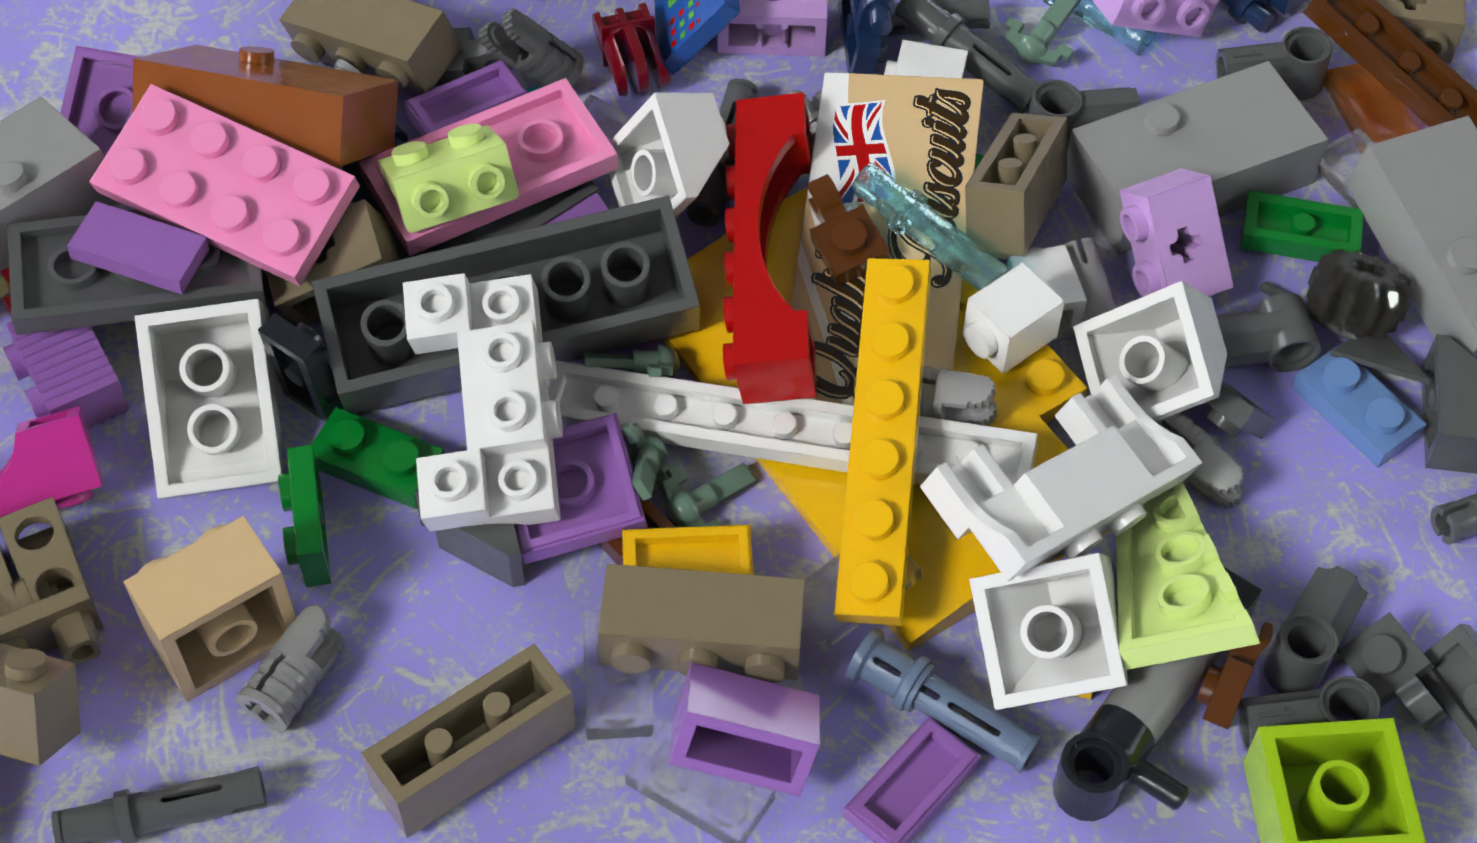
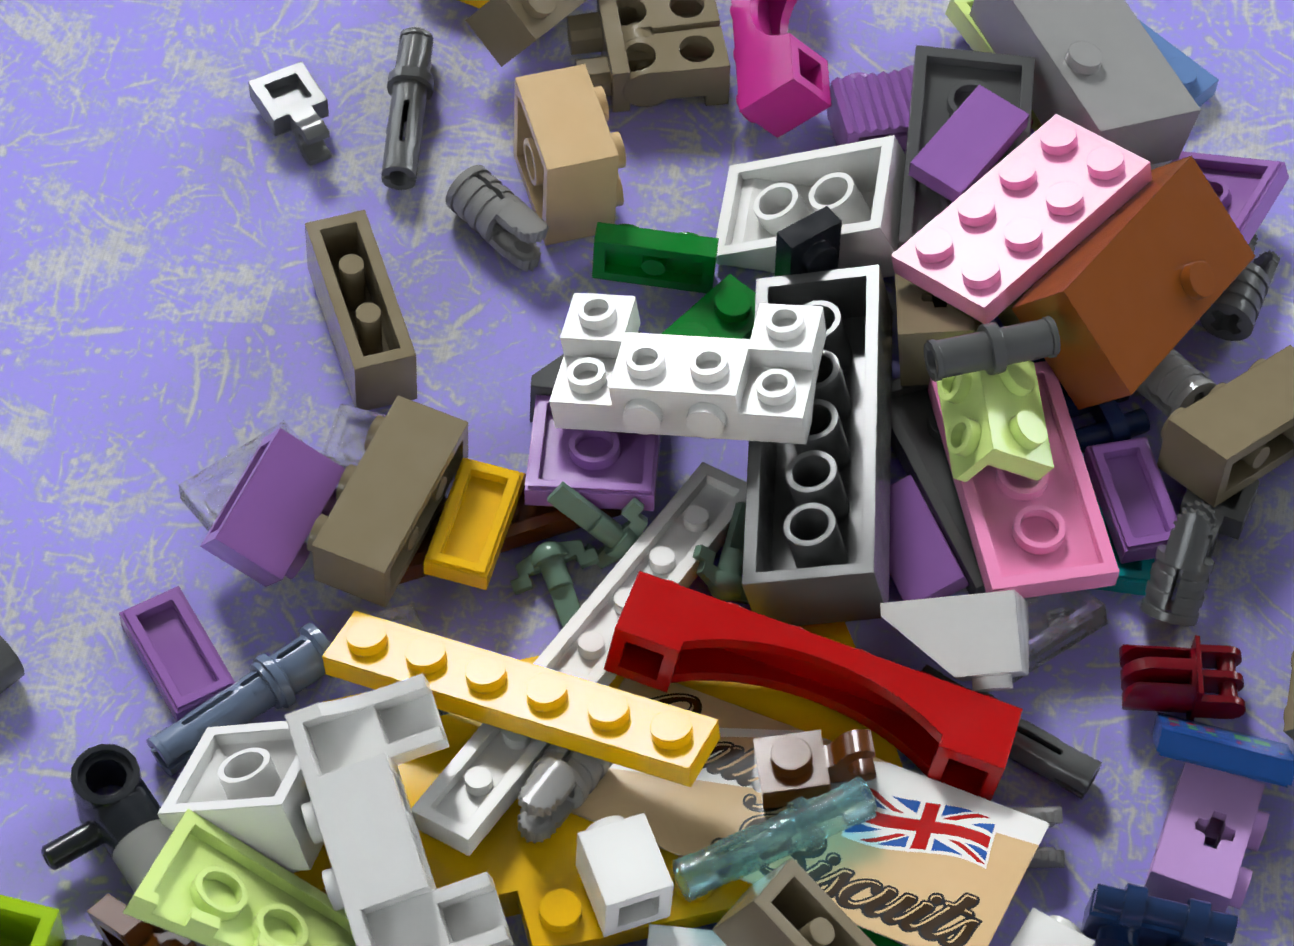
camera: 105 degrees right, 0 degrees up
(407, 153) = (991, 348): none -> dark grey pin

